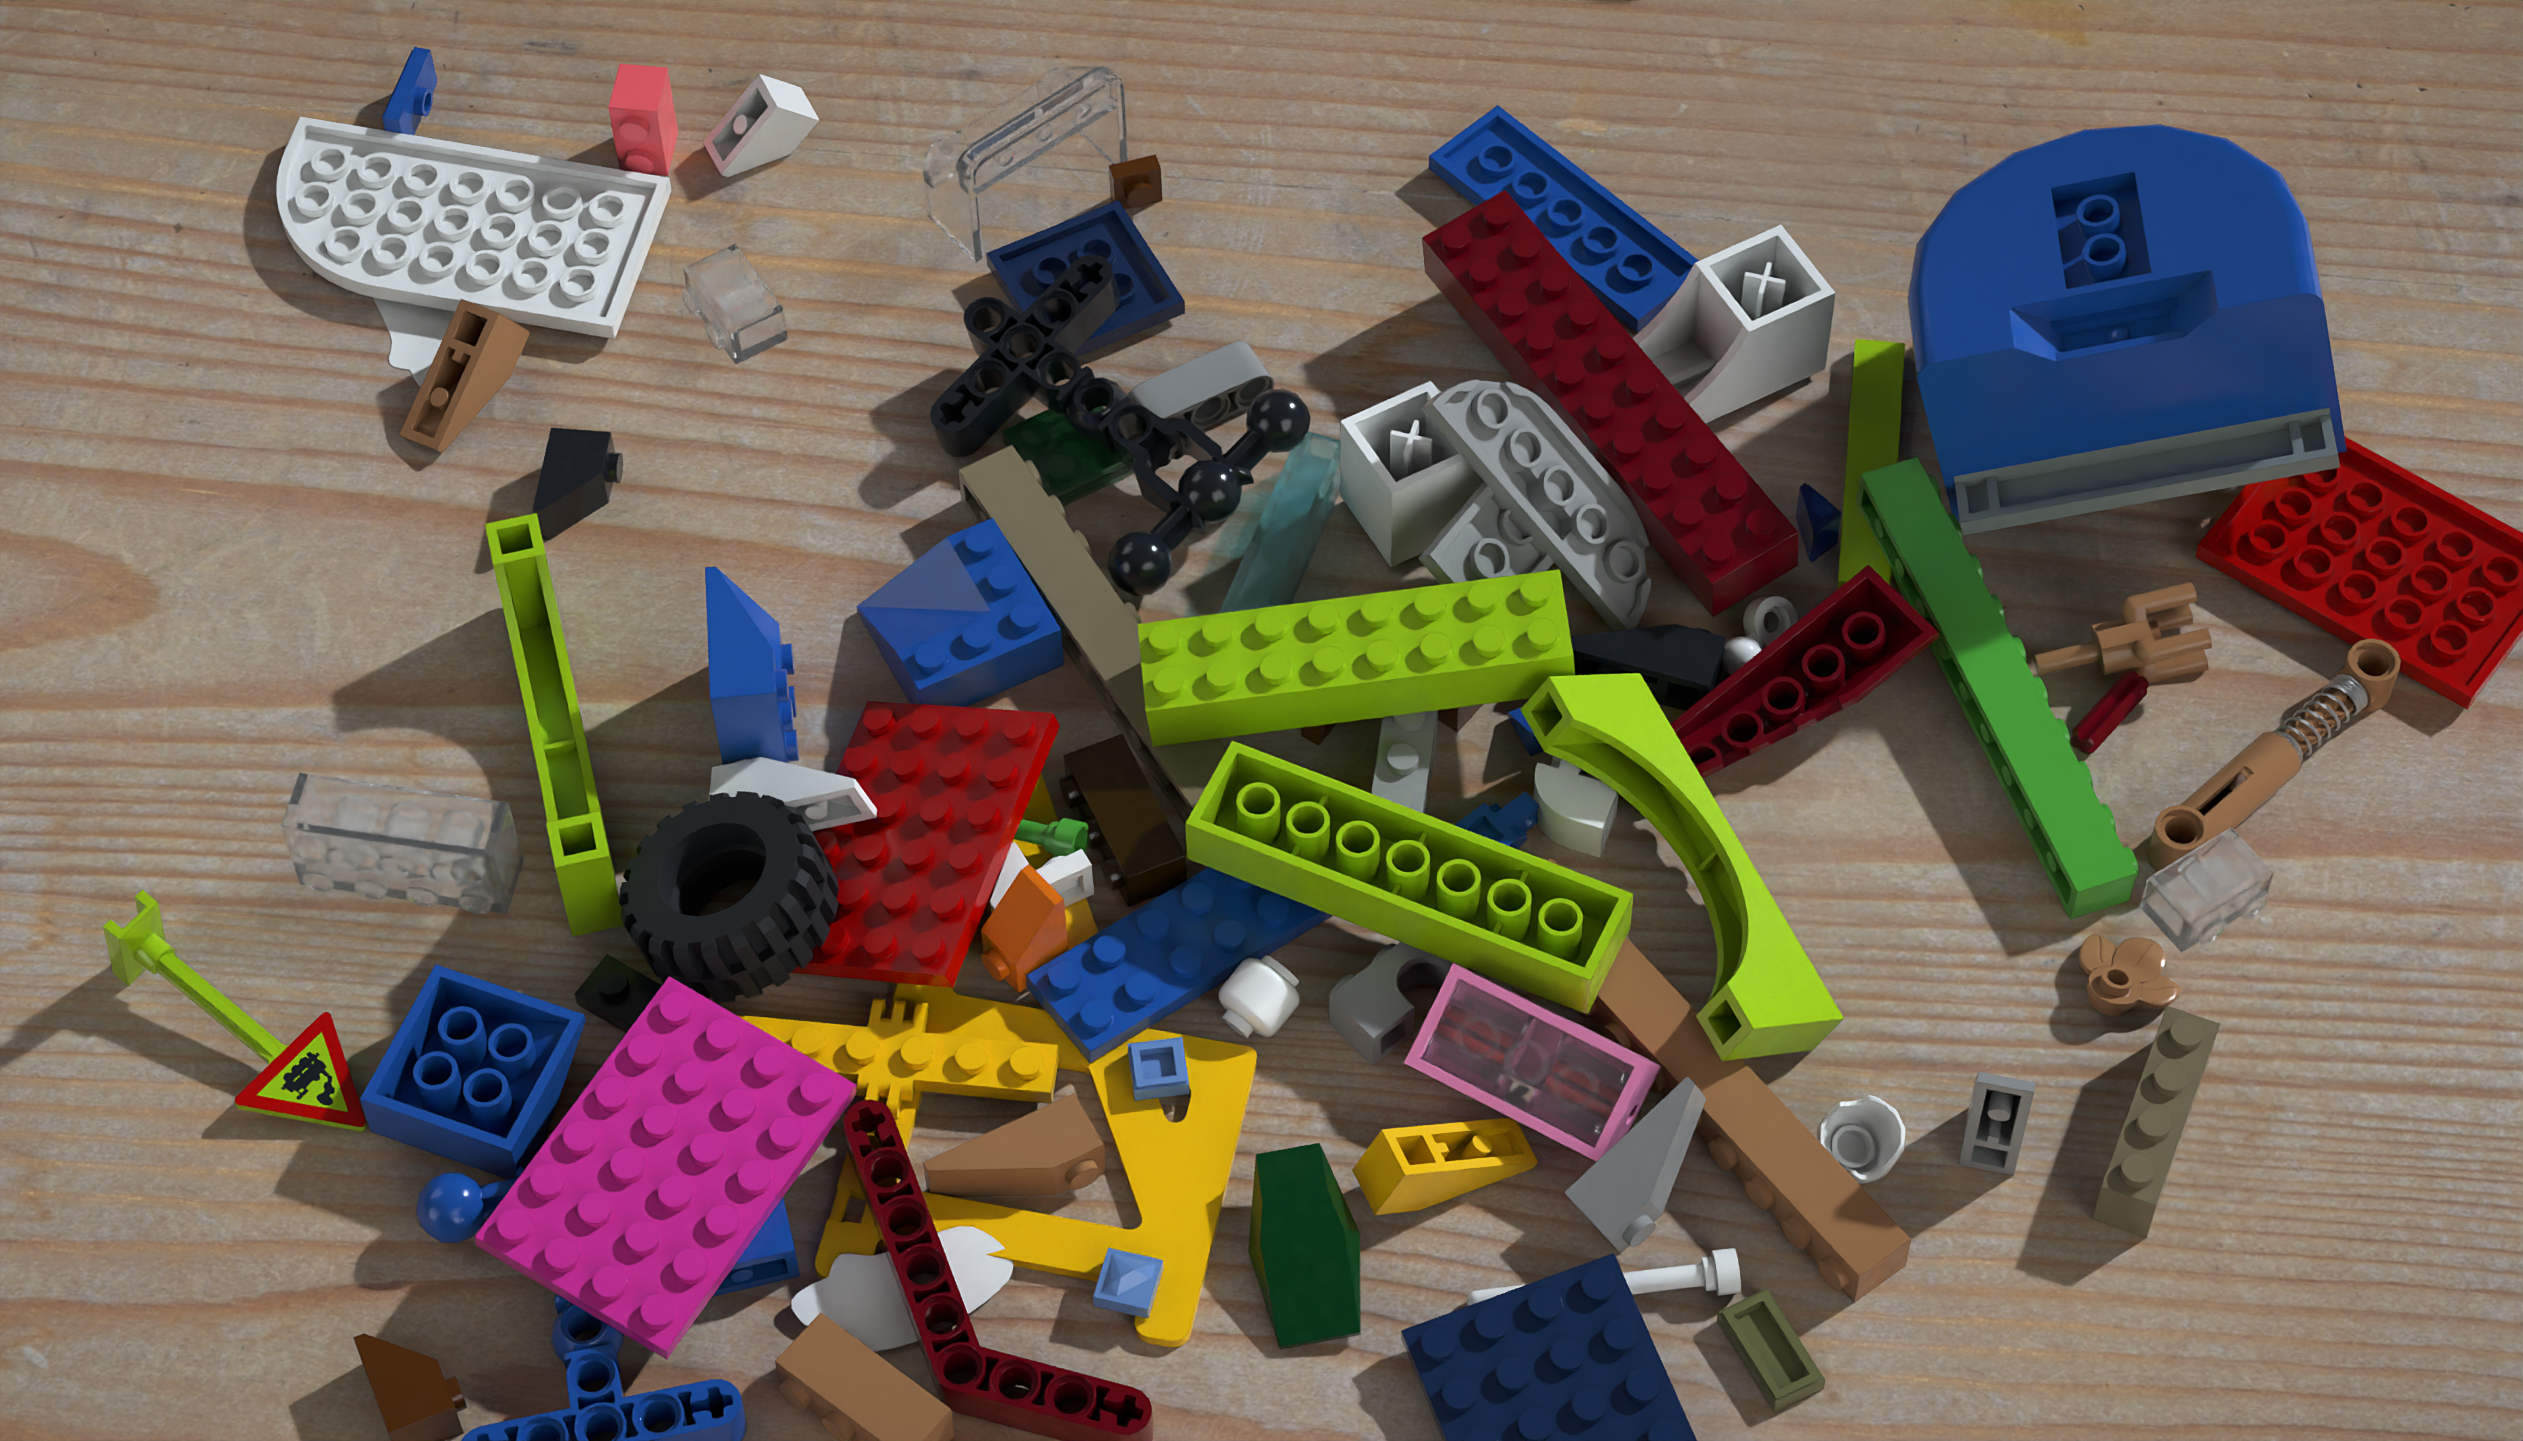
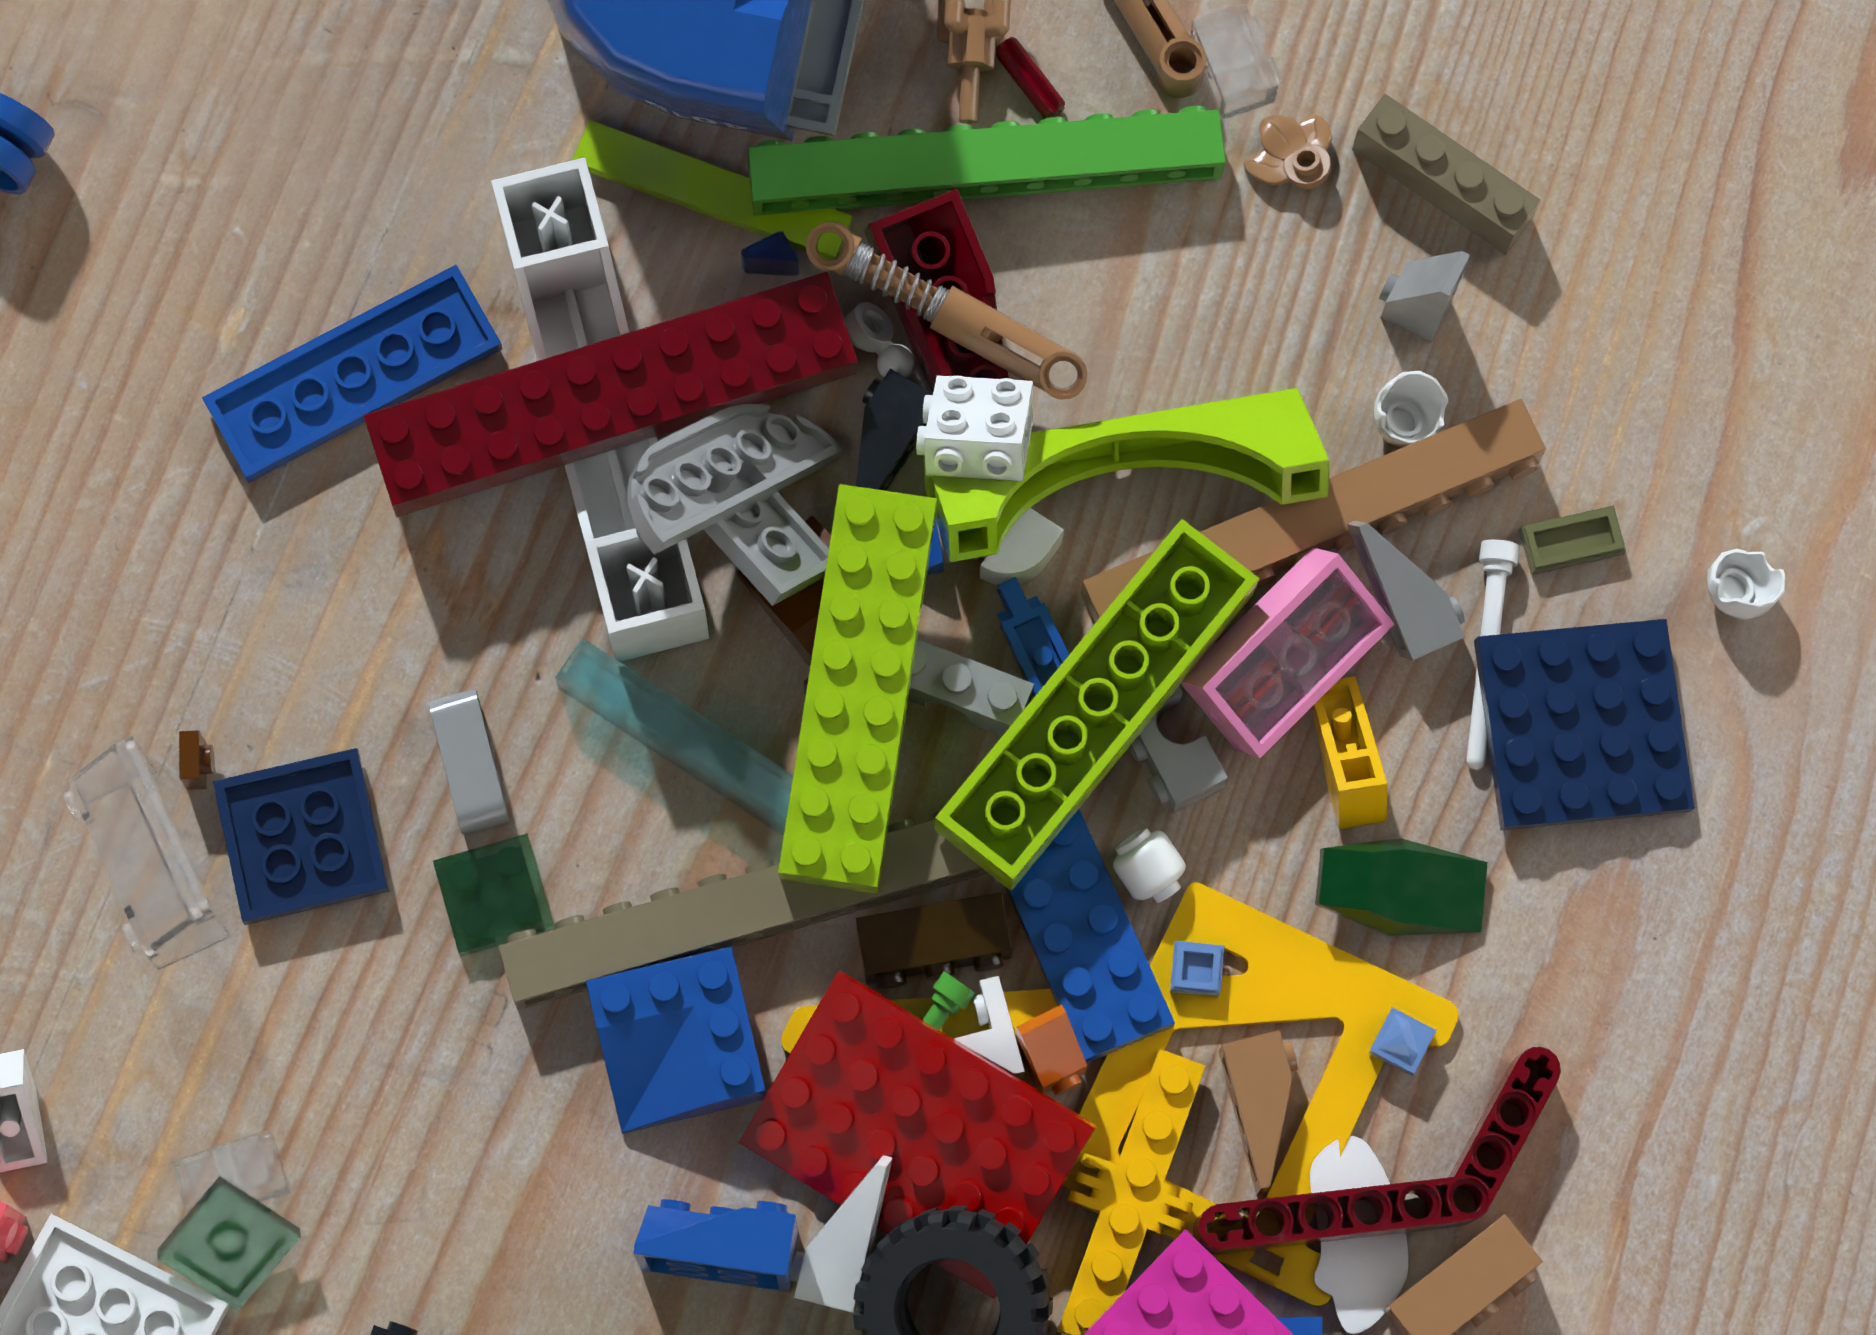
camera: 80 degrees left, 20 degrees up
(666, 305) = (228, 1243): none -> clear green plate
(1087, 297) = (607, 778): black piece -> none
(1677, 705) = (977, 428): none -> white brick
(1797, 660) = (951, 312): none -> medium nougat piece

